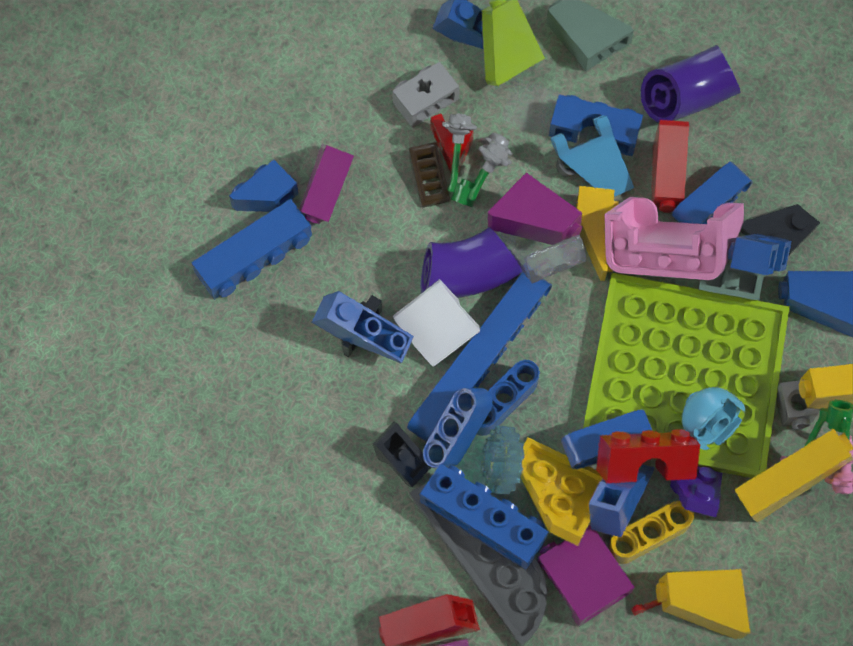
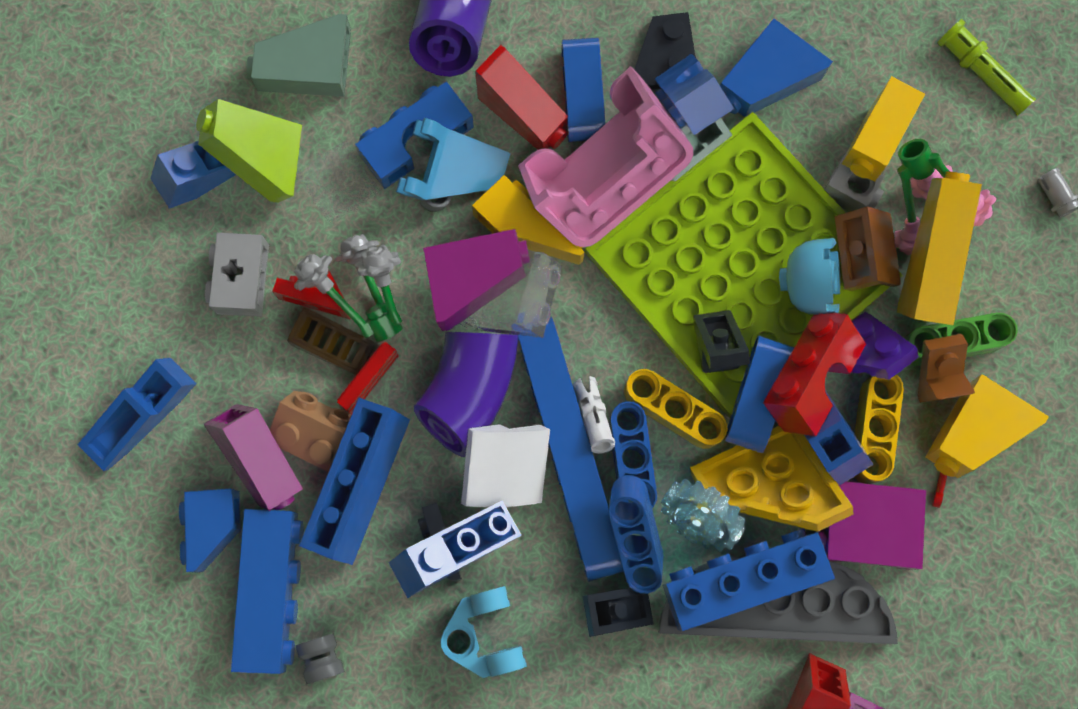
camera: 55 degrees left, 10 degrees up
(237, 309) = (323, 667): none -> dark grey wheel
(299, 103) = (136, 412): none -> blue slope
(313, 404) = (489, 664): none -> medium azure piece
(357, 247) = (355, 482): none -> blue brick
(367, 205) = (309, 428): none -> medium nougat bracket
(424, 210) = (368, 376): none -> red tile
(511, 354) = (594, 416): none -> white pin
(560, 387) = (694, 409): none -> yellow beam
(619, 391) = (720, 342): none -> black slope
(722, 541) = (943, 369): none -> dark orange slope
(761, 438) = (867, 249): none -> dark orange panel
(769, 544) = (973, 330): none -> bright green beam

